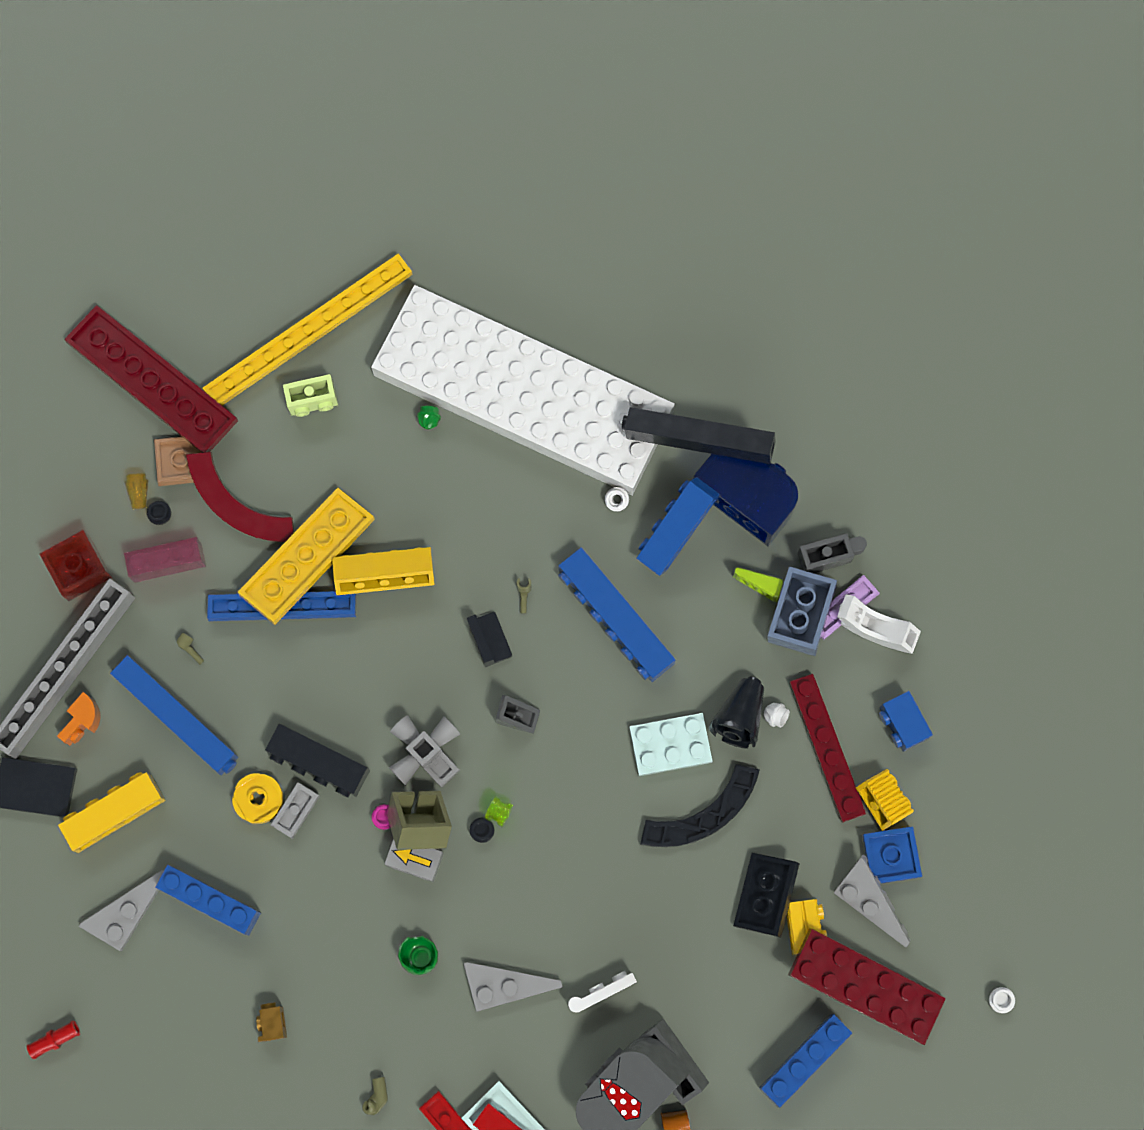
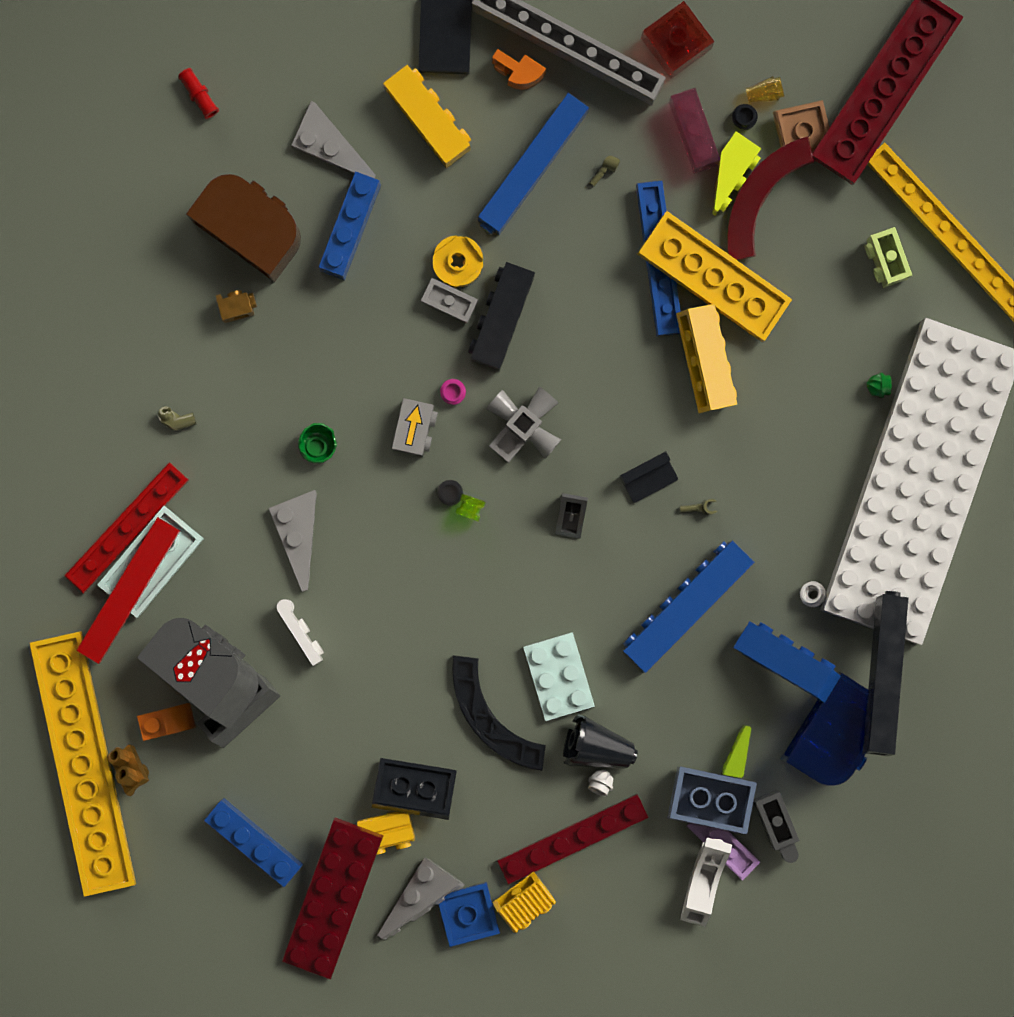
camera: 80 degrees right, 10 degrees up
(190, 1001) = (248, 223): none -> reddish brown brick
(196, 522) = (735, 160): none -> neon yellow slope
(423, 829) = (443, 433): olive piece -> none
(905, 721) = (608, 917): blue brick -> none

